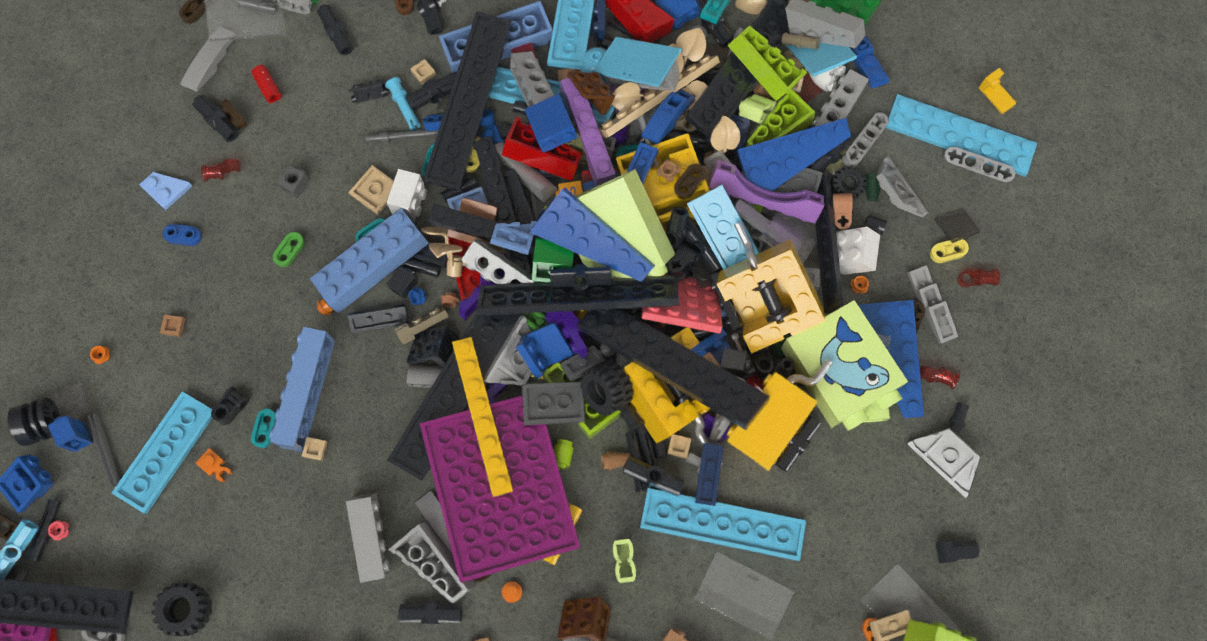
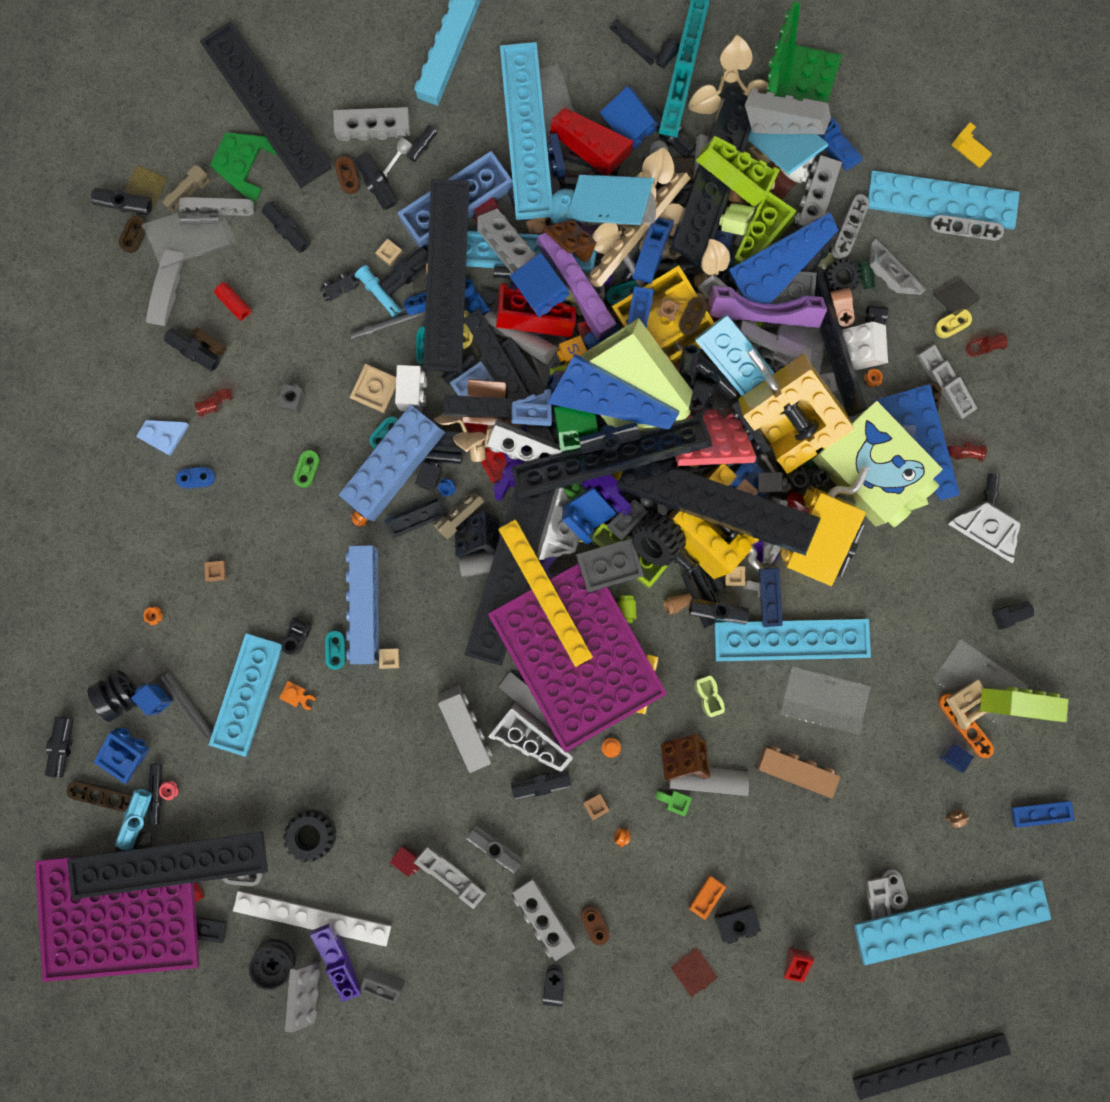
camera: 15 degrees left, 10 degrees up
(449, 300) = (479, 483): nougat plate -> none
(800, 41) = (766, 136): dark tan pin -> none

